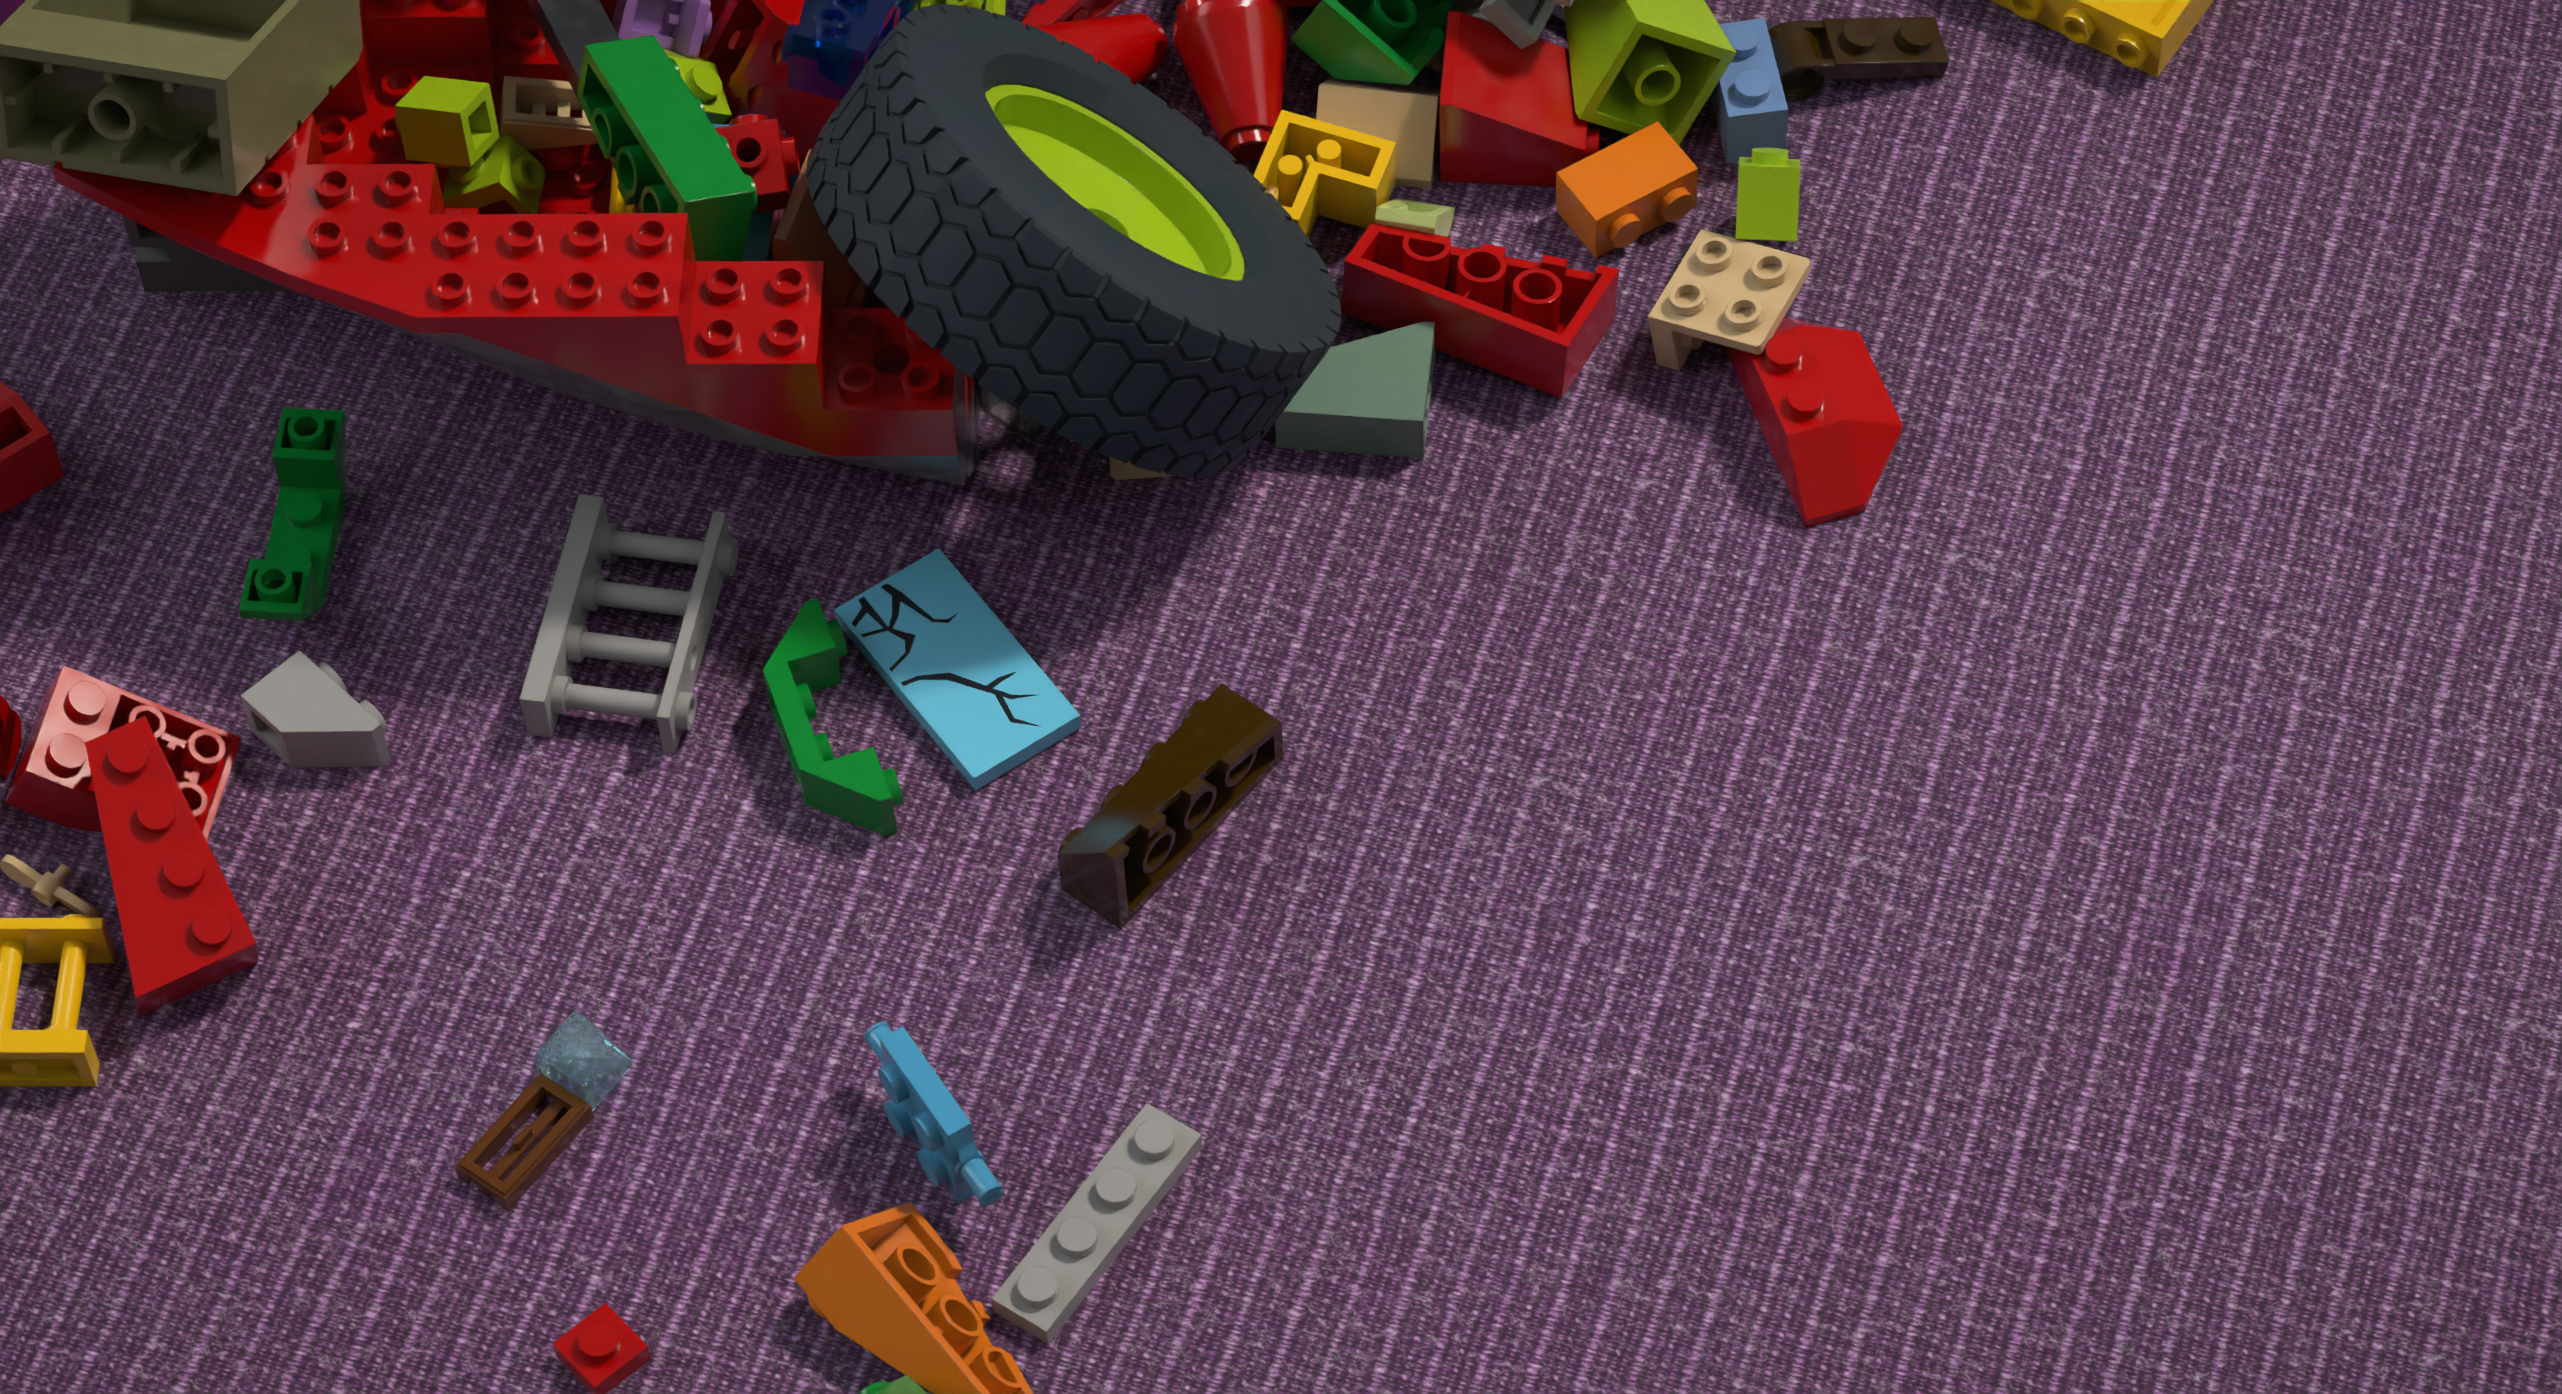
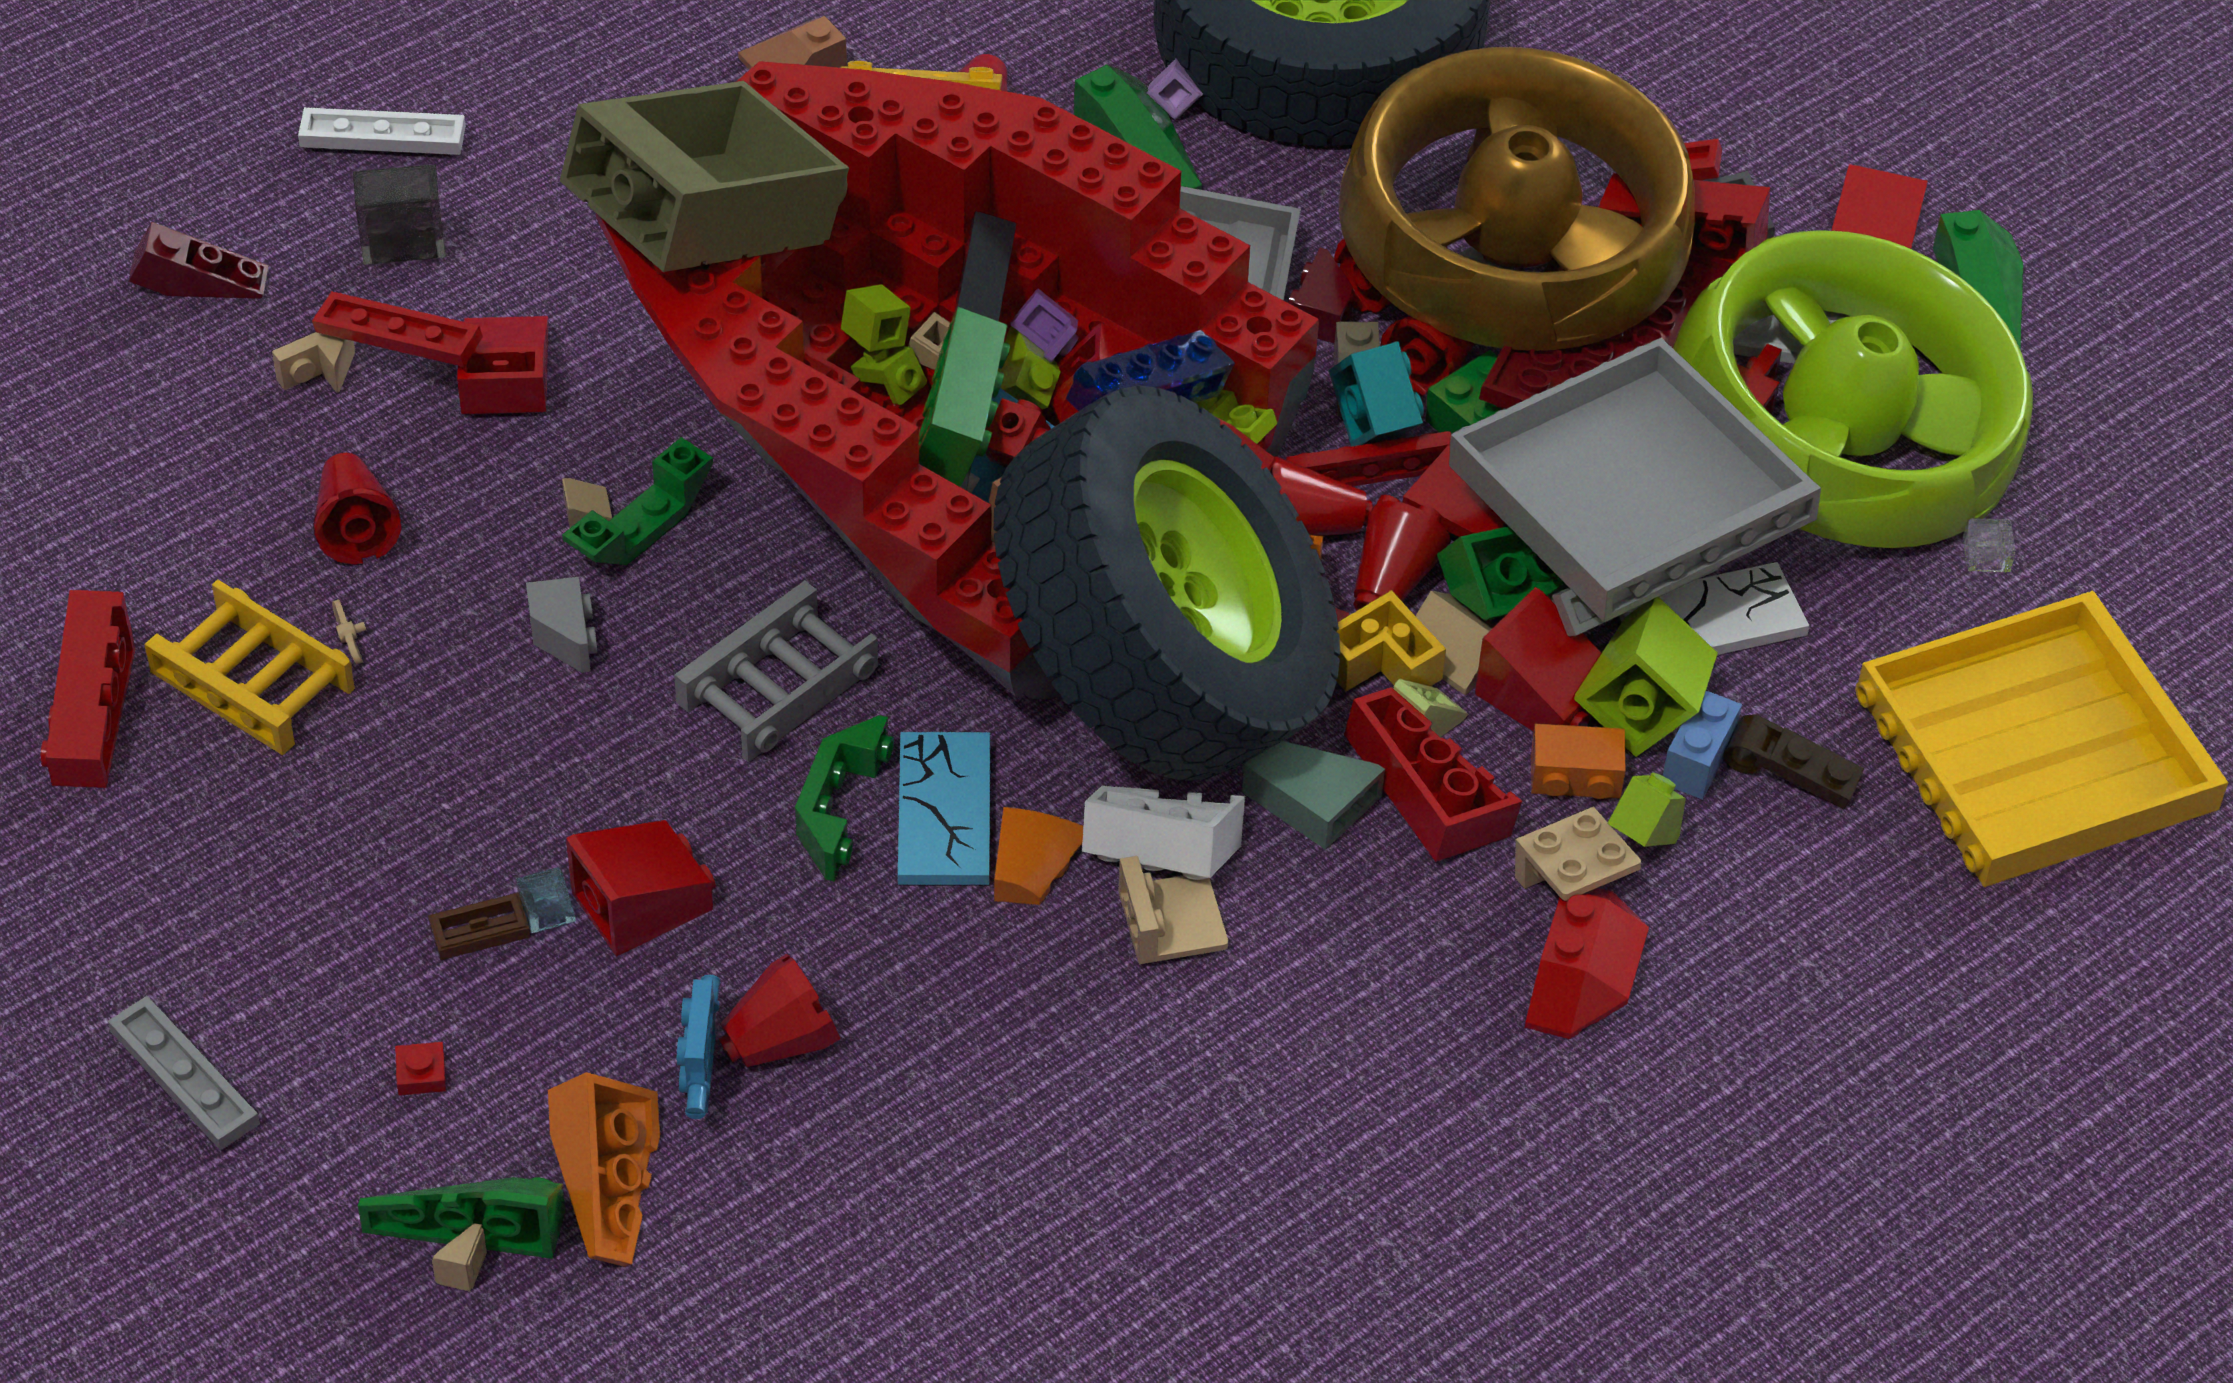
camera: 30 degrees right, 5 degrees down
(55, 769) = (438, 585): red slope -> none
(167, 886) = (398, 655): red wedge -> none
(211, 560) = (582, 498): none -> tan slope
(682, 973) = (637, 882): none -> red slope
(990, 1022) = (777, 1018): none -> red cone
(1097, 1223) = (753, 1171): light grey plate -> none
(1107, 660) = (1032, 854): none -> orange slope
(1169, 805) = (995, 958): dark brown wedge -> none
(1241, 545) = (1162, 832): none -> white wedge
(1321, 635) = (1169, 914): none -> tan bracket

